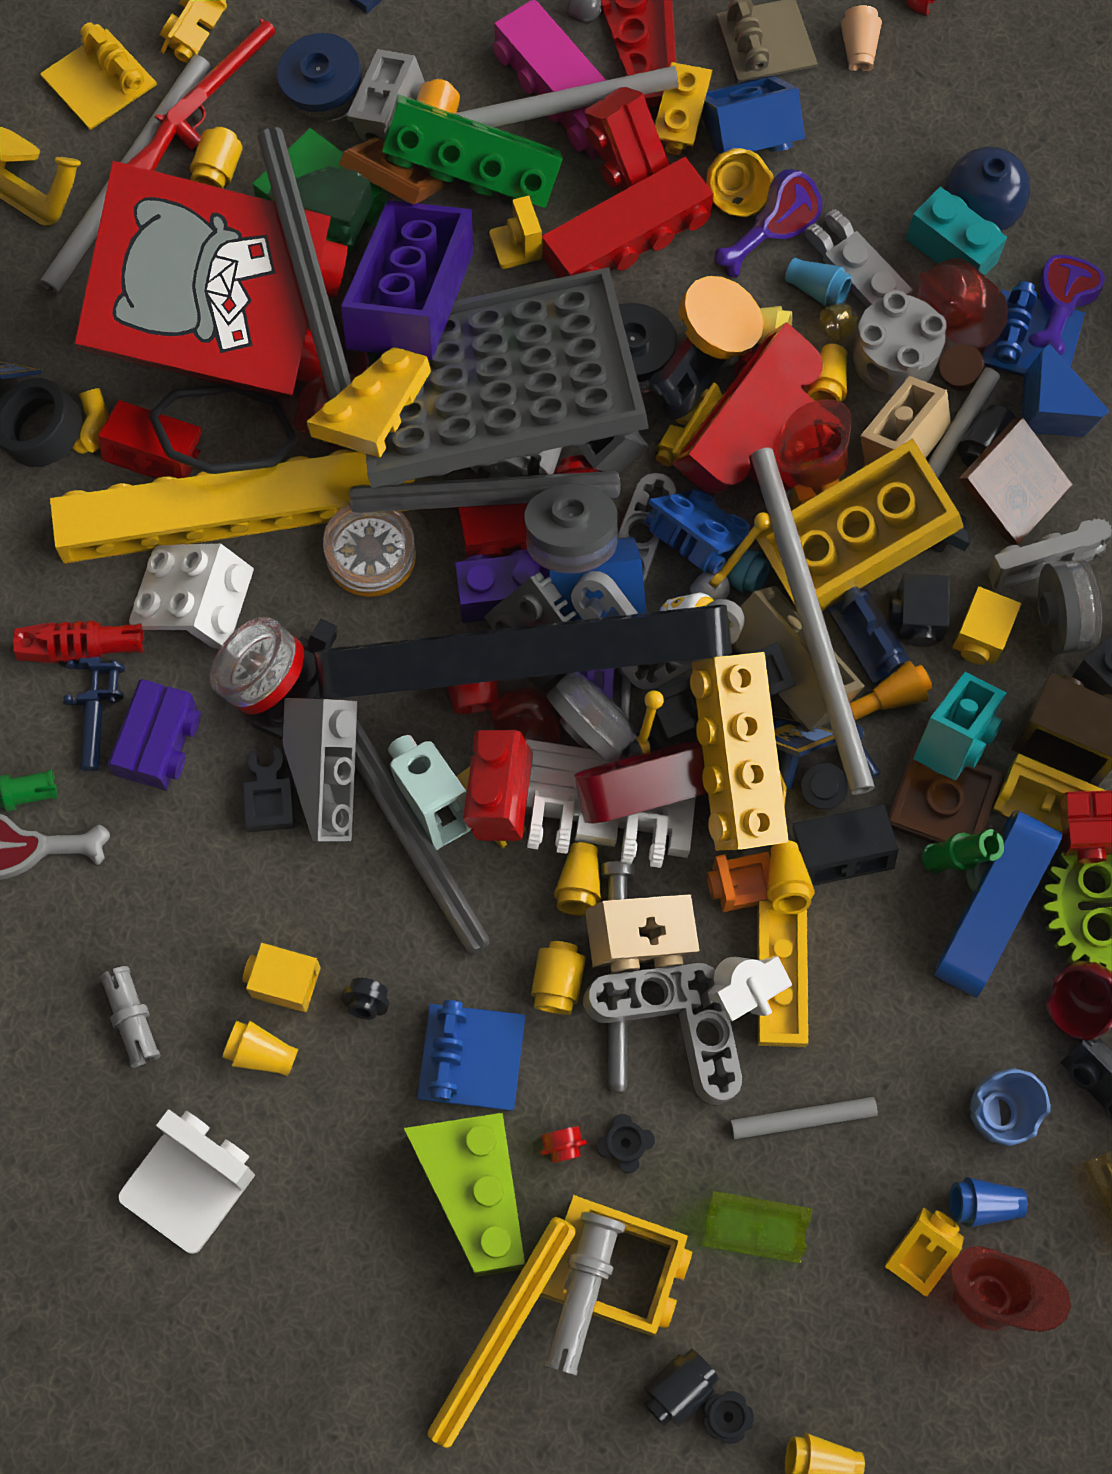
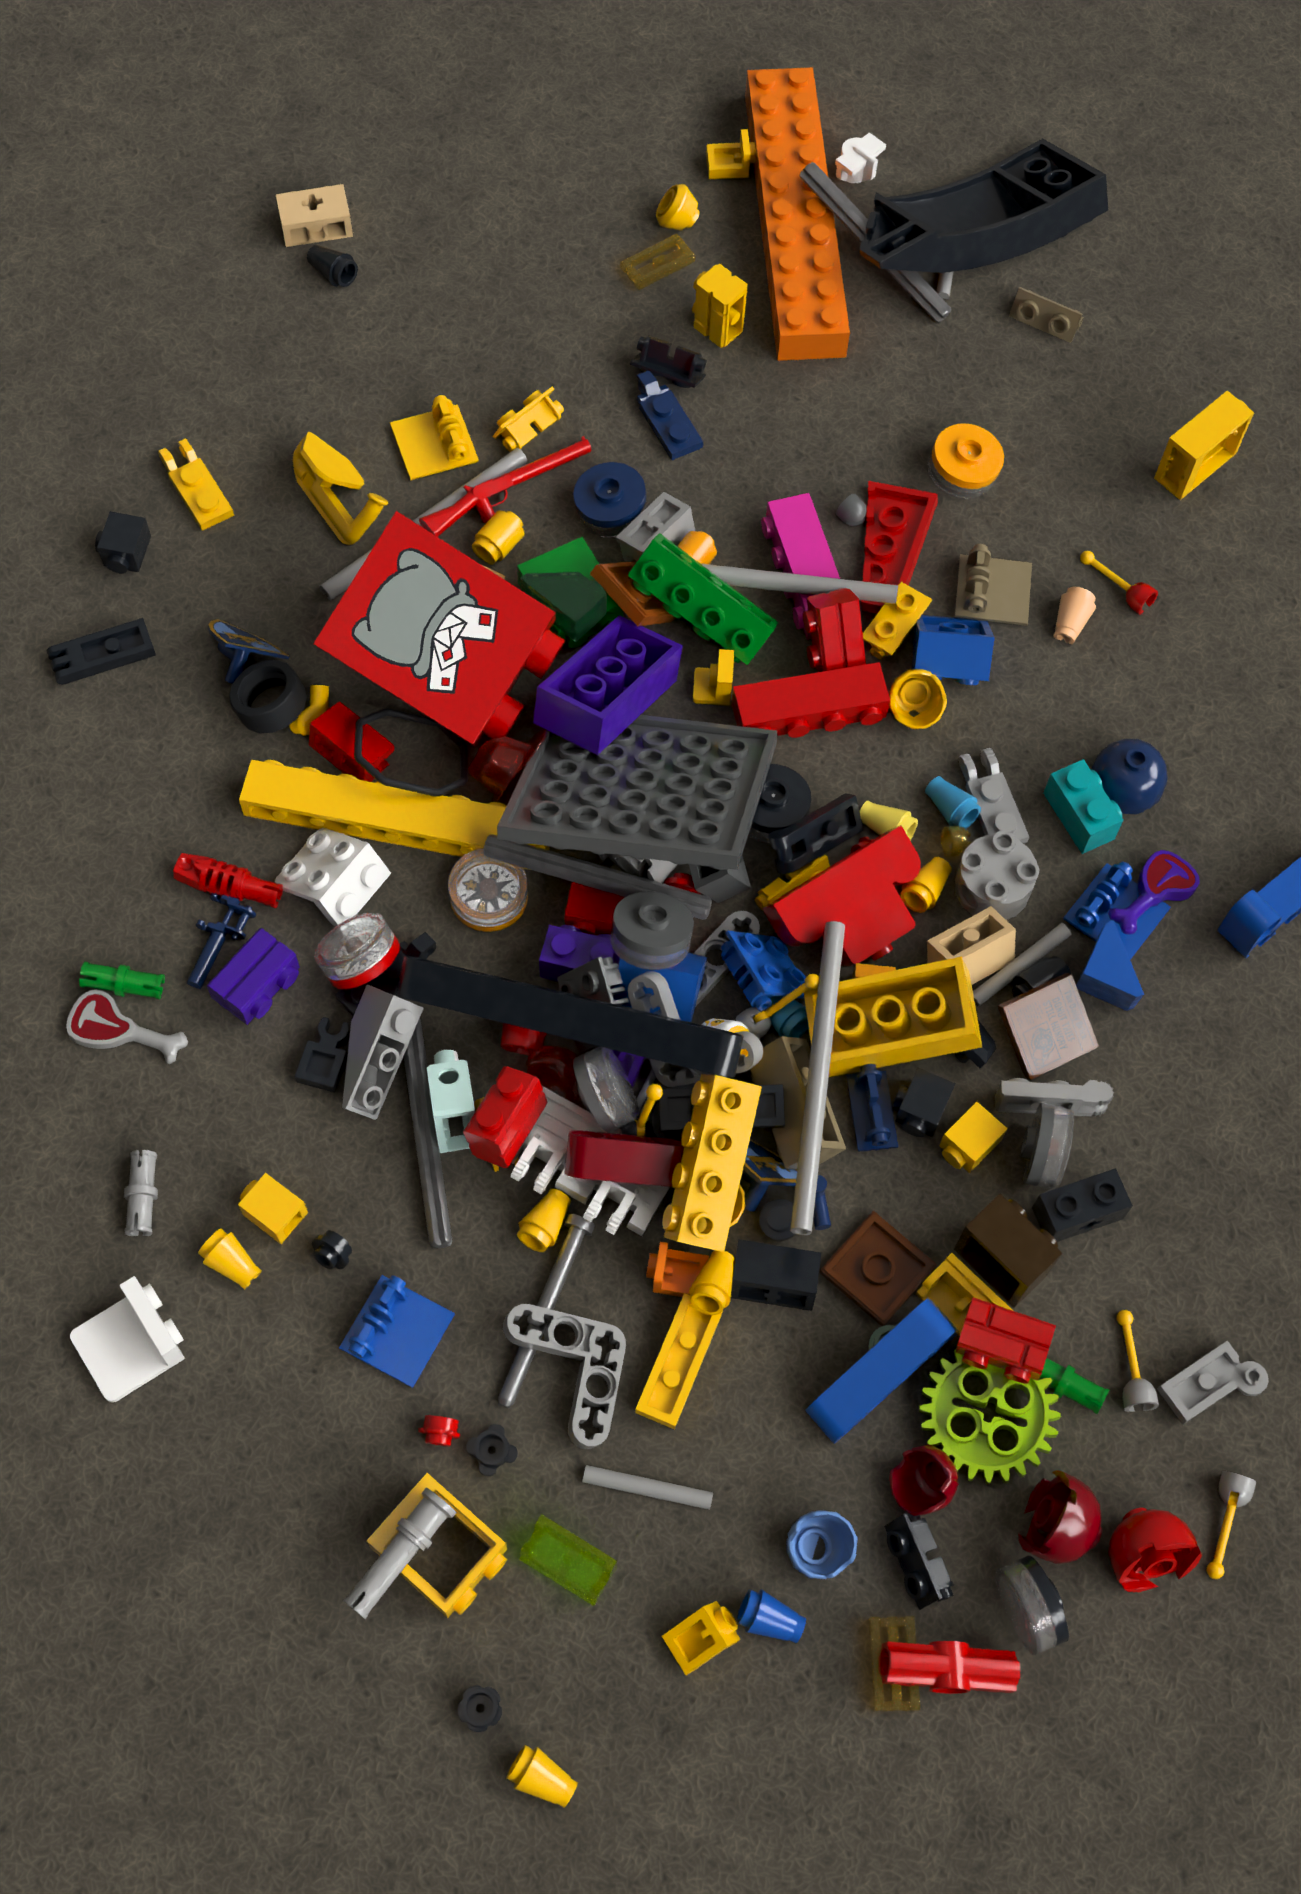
camera: 20 degrees right, 5 degrees down
(304, 260) = (519, 643): dark grey axle -> none
(372, 403) = (529, 772): yellow wing -> none
(474, 1185) = (352, 1437): lime wedge -> none
(501, 1332) = (322, 1560): yellow axle -> none
(558, 978) = (493, 1293): yellow brick -> none
(664, 920) = (598, 1281): tan brick -> none
(680, 1388) = (449, 1667): black brick -> none
(720, 317) = (851, 803): light orange tile -> none
(747, 985) = (642, 1356): white piece -> none
(790, 208) = (952, 734): dark purple piece -> none
(816, 444) = (883, 934): clear red piece -> none
(902, 688) = (877, 1163): light orange cone -> none
(961, 366) = (1044, 914): reddish brown tile -> none
(961, 727) = (911, 1211): teal brick -> none
(962, 851) = (869, 1316): green pin -> none
(967, 300) = (1065, 862): clear red piece -> none
(1007, 1291) = (753, 1696): clear red piece -> none

